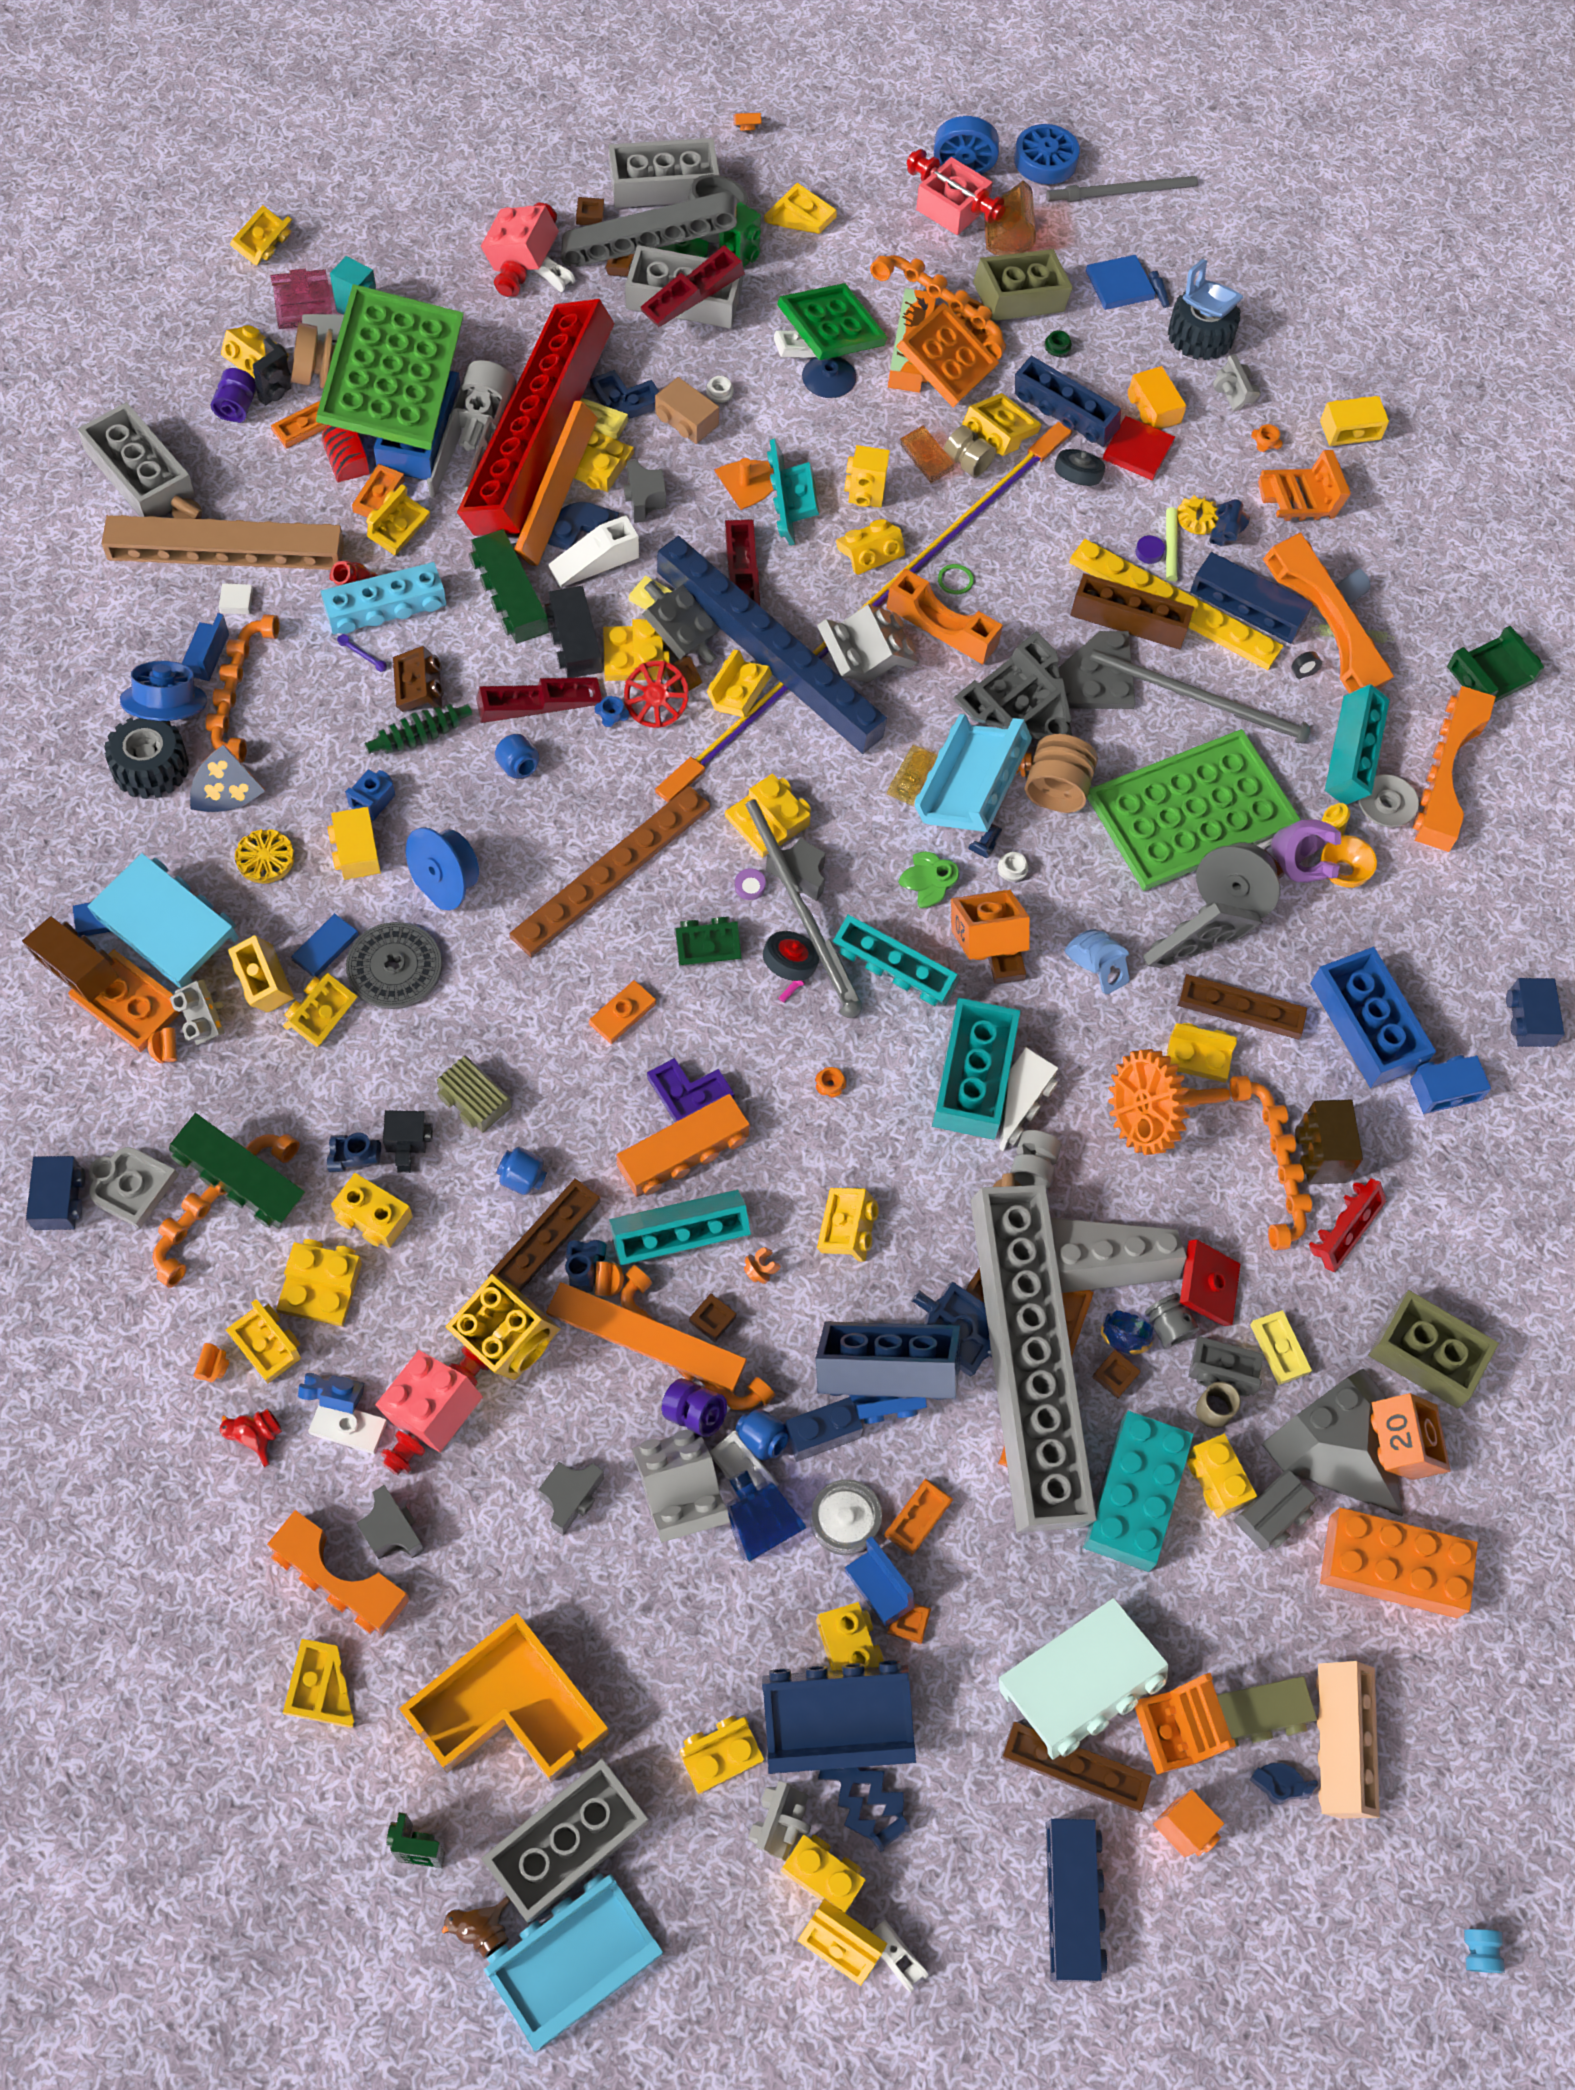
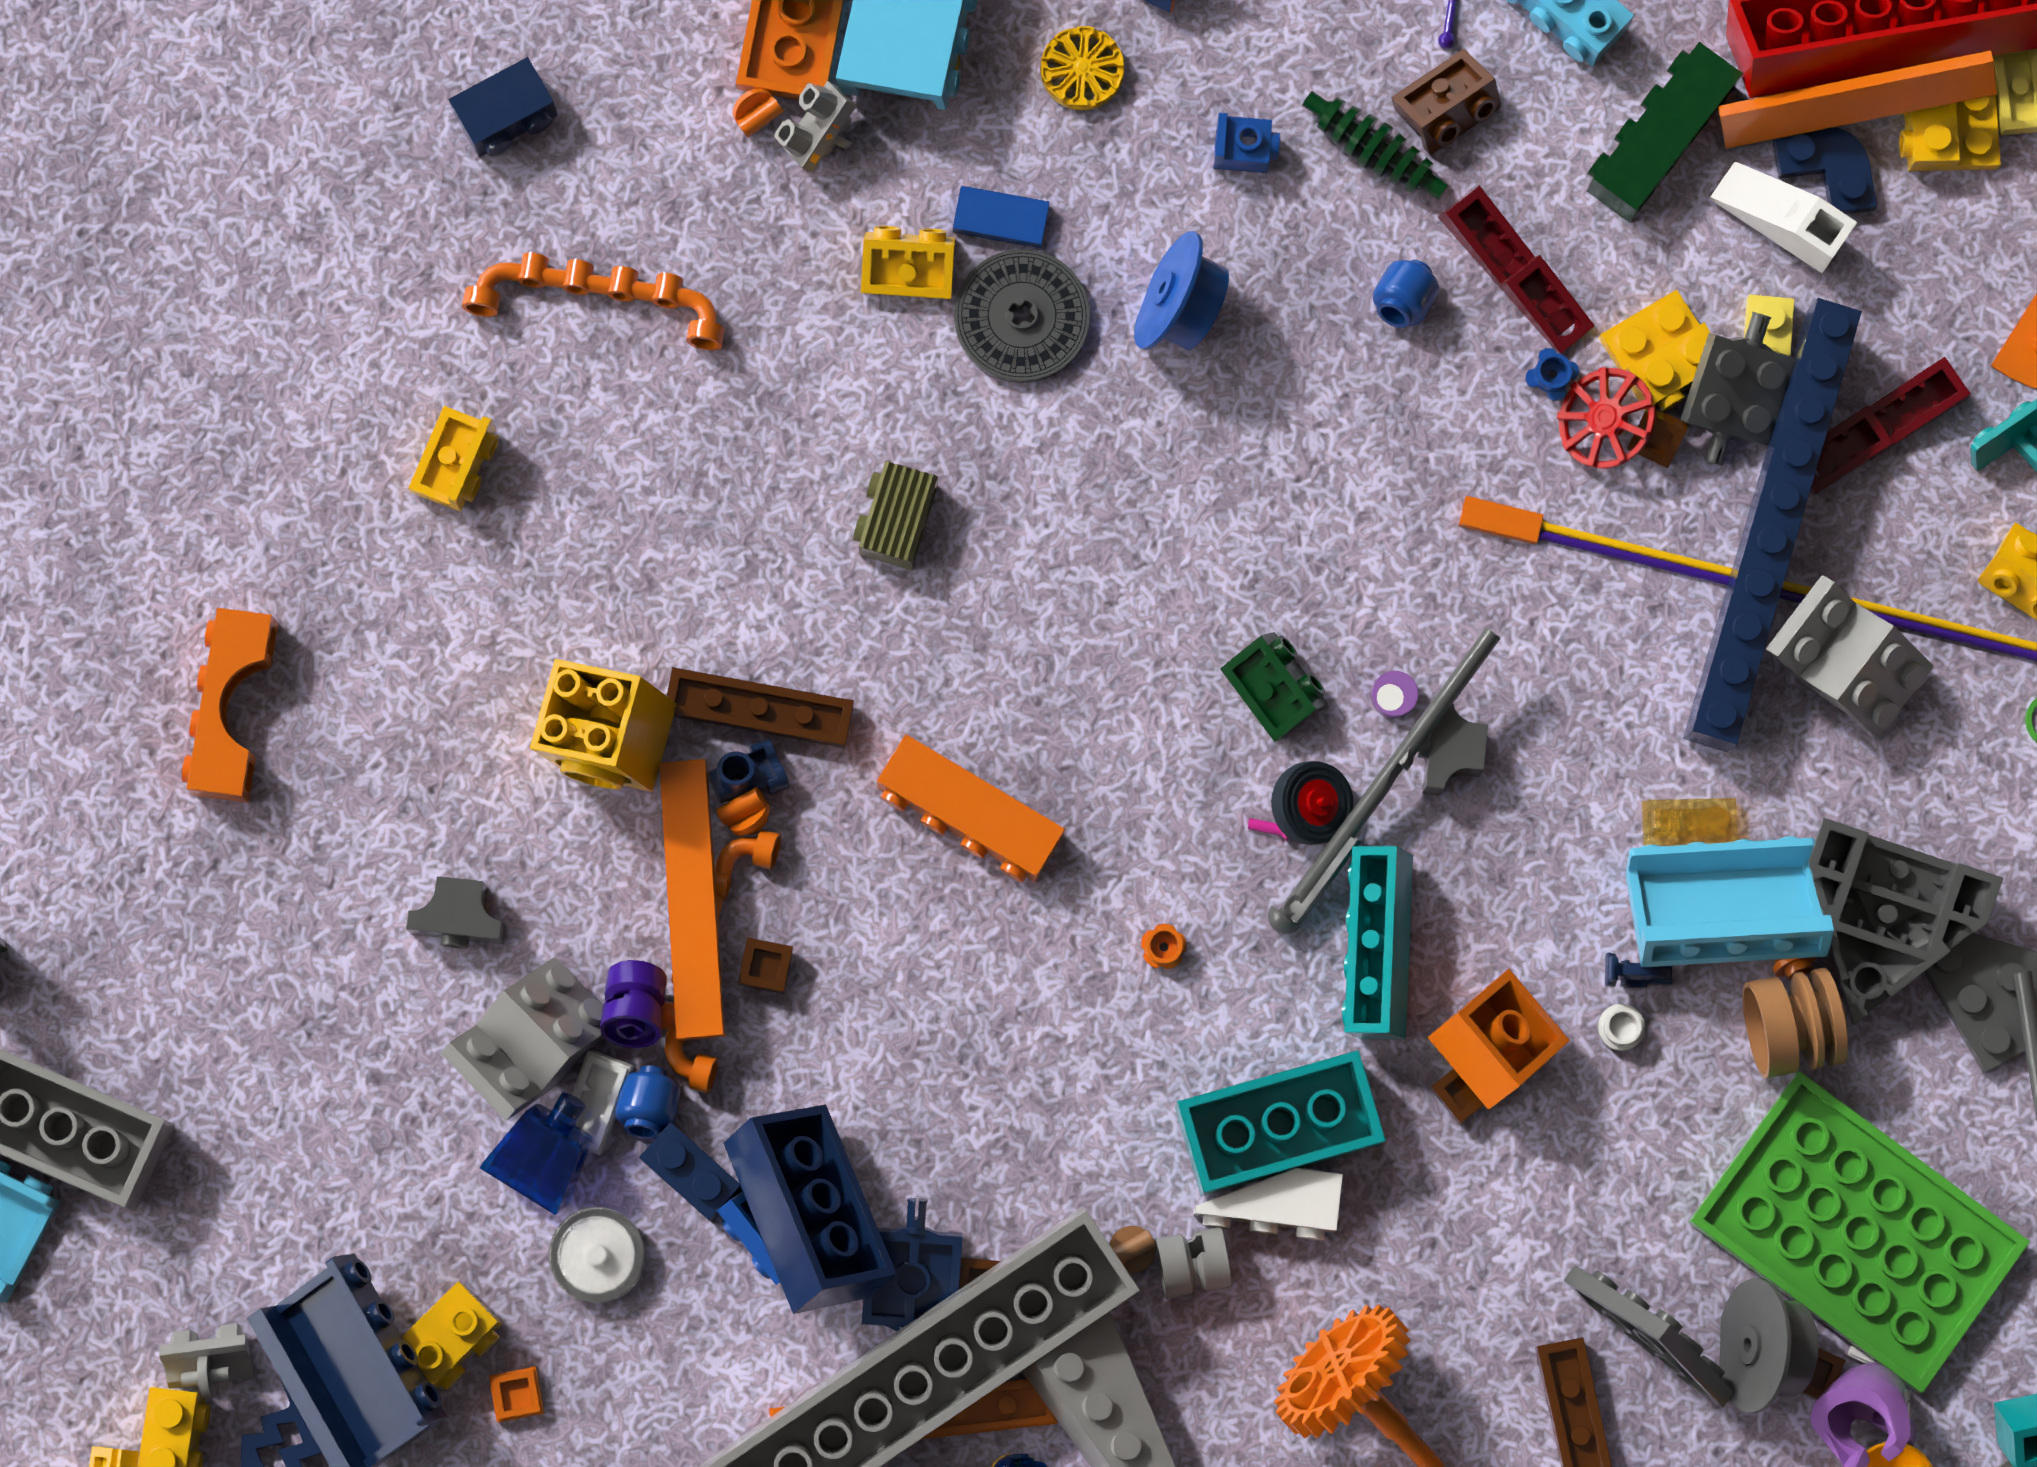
camera: 65 degrees right, 15 degrees up
(129, 1184) = (562, 185): light grey plate -> none
(211, 1363) = (397, 415): orange plate -> none
(235, 1171) = (633, 299): dark green brick -> none
(252, 1431) = (343, 511): red animal -> none
(260, 974) = (909, 167): yellow brick -> none
(318, 1686) = (99, 759): yellow wing -> none
(319, 1282) = (560, 477): yellow plate -> none
(335, 1393) = (435, 577): blue plate -> none
(352, 1152) = (739, 410): dark blue plate -> none
(353, 1430) = (408, 614): white plate -> none
(355, 843) = (1159, 166): yellow brick -> none
(371, 1211) = (678, 484): yellow brick -> none
(389, 1527) = (313, 731): dark grey brick -> none
(406, 1134) = (799, 464): black brick -> none
(429, 1405) = (471, 692): coral brick -> none
(512, 1684) = (202, 973): light orange piece -> none
(521, 1171) = (828, 631): blue head -> none
(573, 632) = (1641, 256): black brick -> none
(609, 871) = (1312, 506): dark orange plate -> none
(622, 1012) = (1117, 633): orange plate -> none
(644, 490) = (1931, 220): dark grey brick -> none
(680, 1095) = (1037, 778): dark purple plate -> none
(680, 1227) = (855, 863): teal brick -> none
(720, 1754) = (249, 1253): yellow bracket -> none
(738, 685) = (1689, 517): yellow bracket -> none
(756, 1267) = (858, 985): orange plate -> none
(780, 808) = (1519, 667): yellow plate -> none
(848, 1223) = (979, 1068): yellow bracket -> none
(881, 1584) = (536, 1338): blue panel -> none
(918, 1517) = (646, 1343): orange plate -> none
(925, 878) = (1535, 918): bright green plate -> none
(970, 634) = (1965, 704): orange arch -> none
(1097, 953) = (1547, 1202): medium blue piece -> none
(1201, 1051) = (1476, 1409): yellow bracket -> none
(1337, 816) = (1962, 1440): yellow plate -> none

